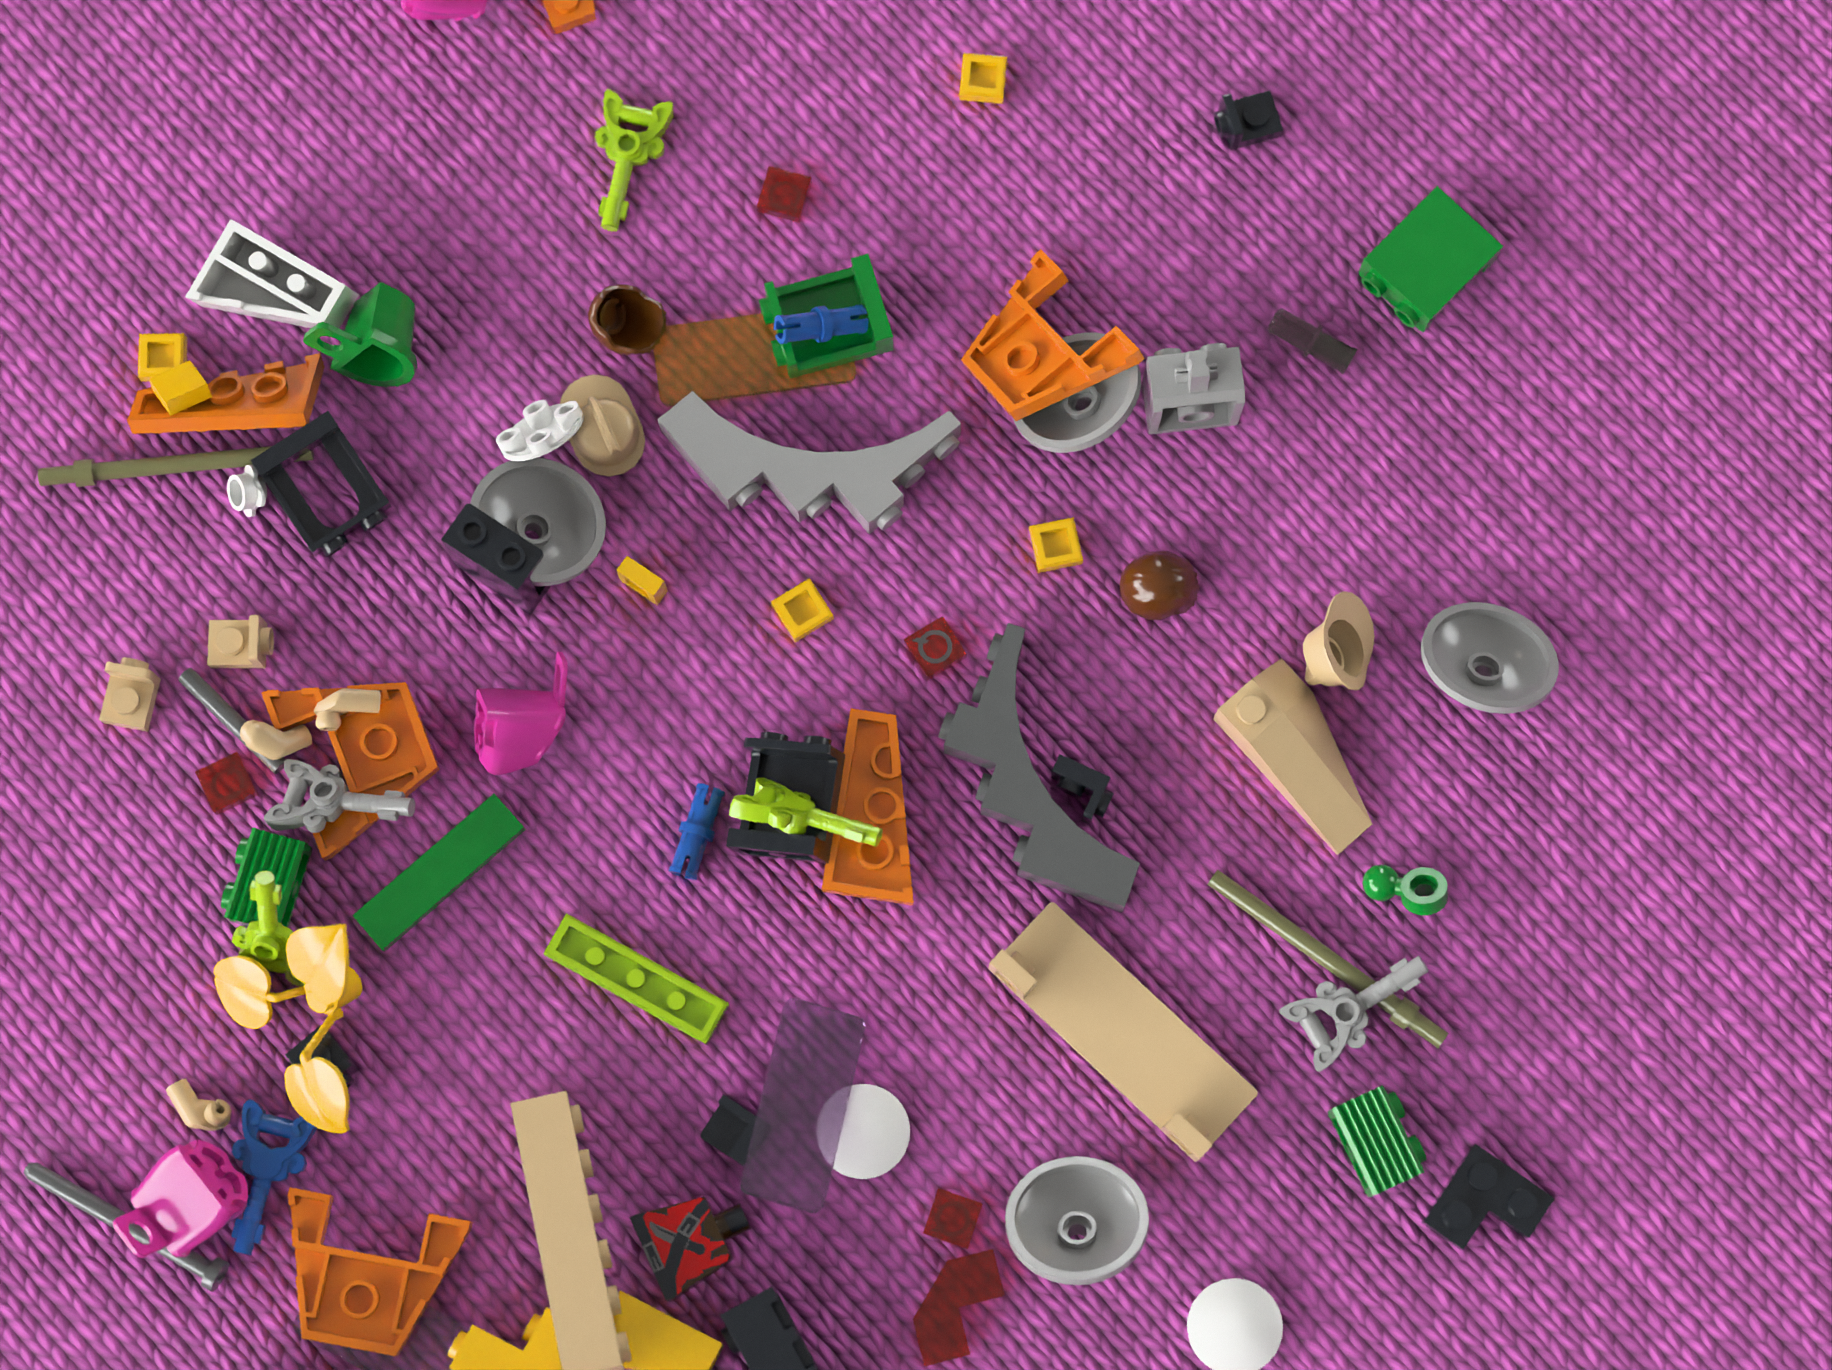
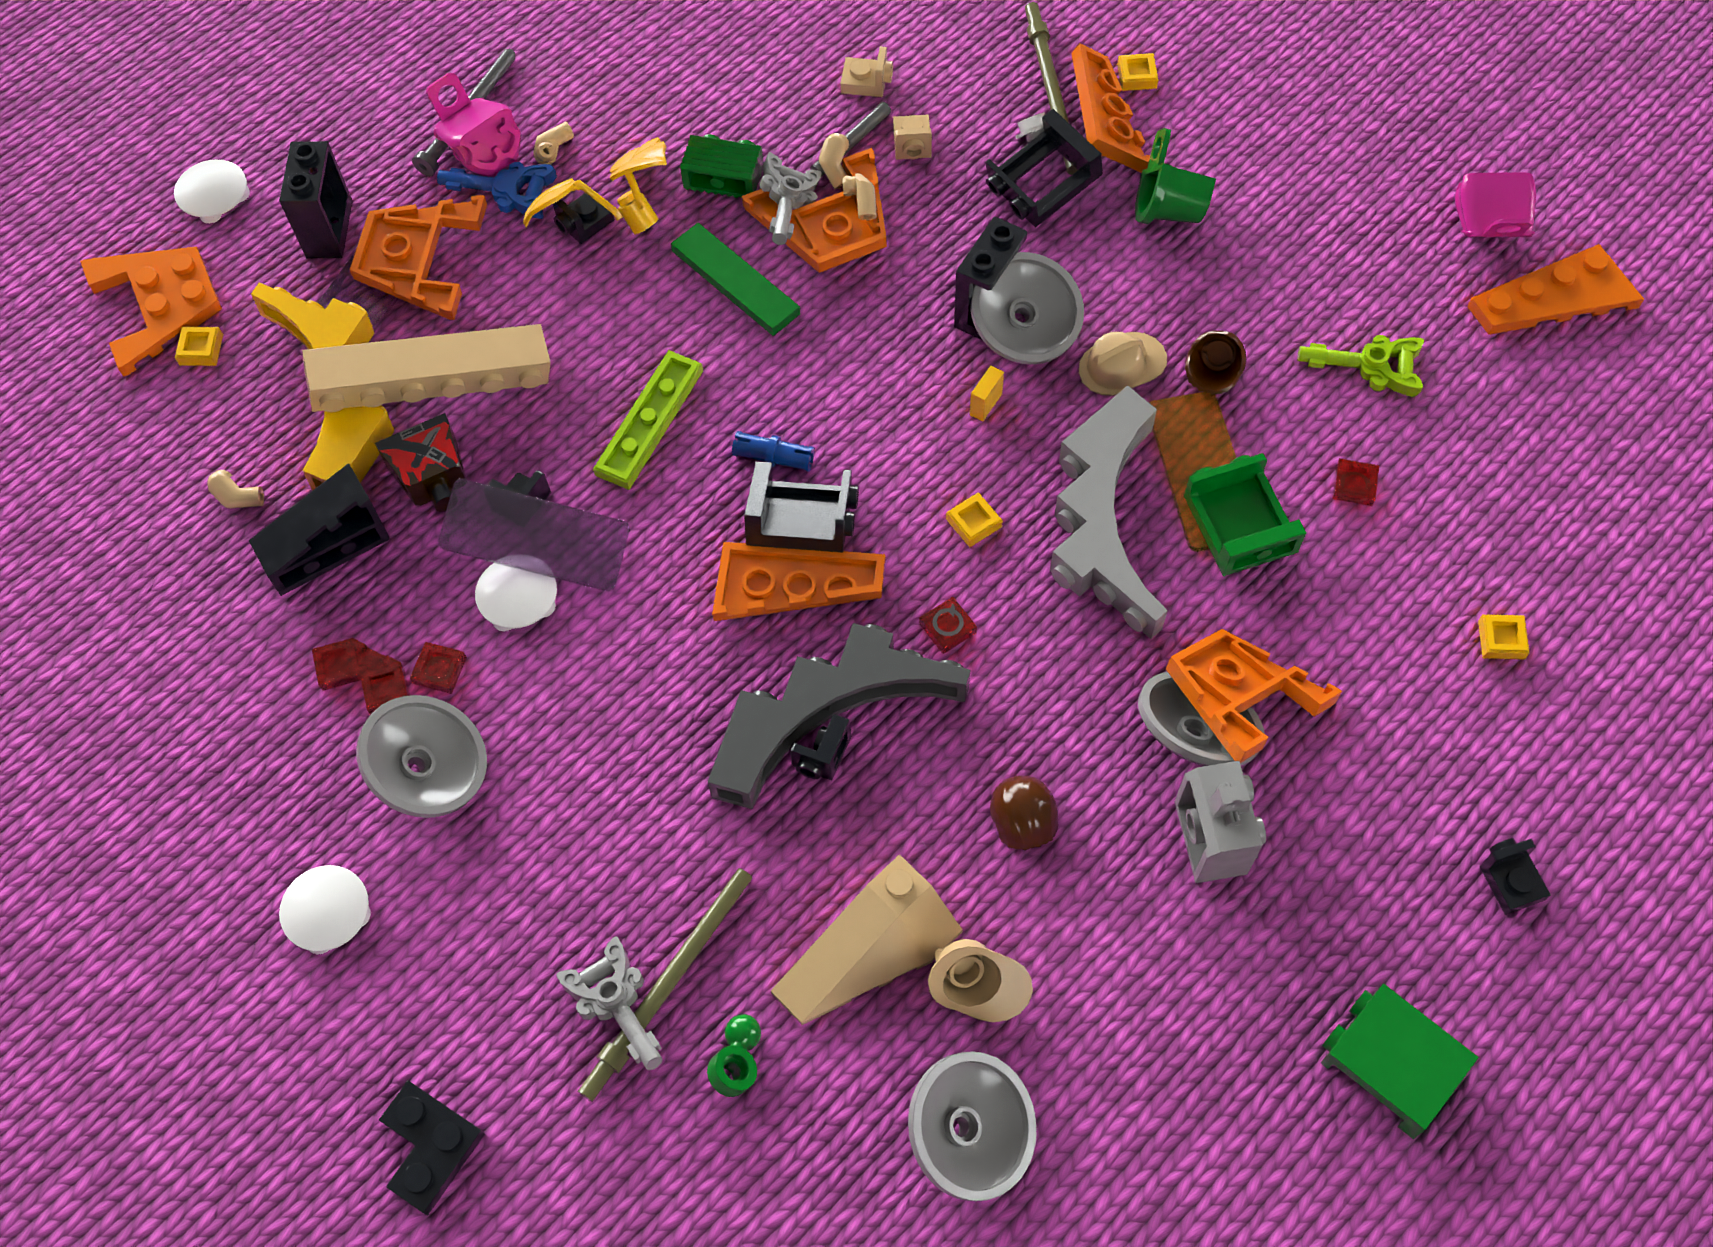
camera: 90 degrees right, 15 degrees down
(180, 387) = (1110, 73): yellow tile -> none
(226, 783) = (801, 140): clear red tile -> none
(266, 282) = (1209, 117): white wedge -> none
(266, 938) = (675, 156): lime piece -> none
(518, 724) = (856, 307): dark pink piece -> none
(540, 430) = (1114, 316): white dish -> none
(794, 812) = (783, 505): lime piece -> none
(821, 324) = (1231, 497): blue pin -> none
(1056, 545) = (1055, 722): yellow tile -> none
(1123, 1031) = (595, 798): tan bracket -> none
(1311, 340) = (1291, 946): clear smoke axle -> none
(1377, 1141) = (486, 1031): green brick -> none

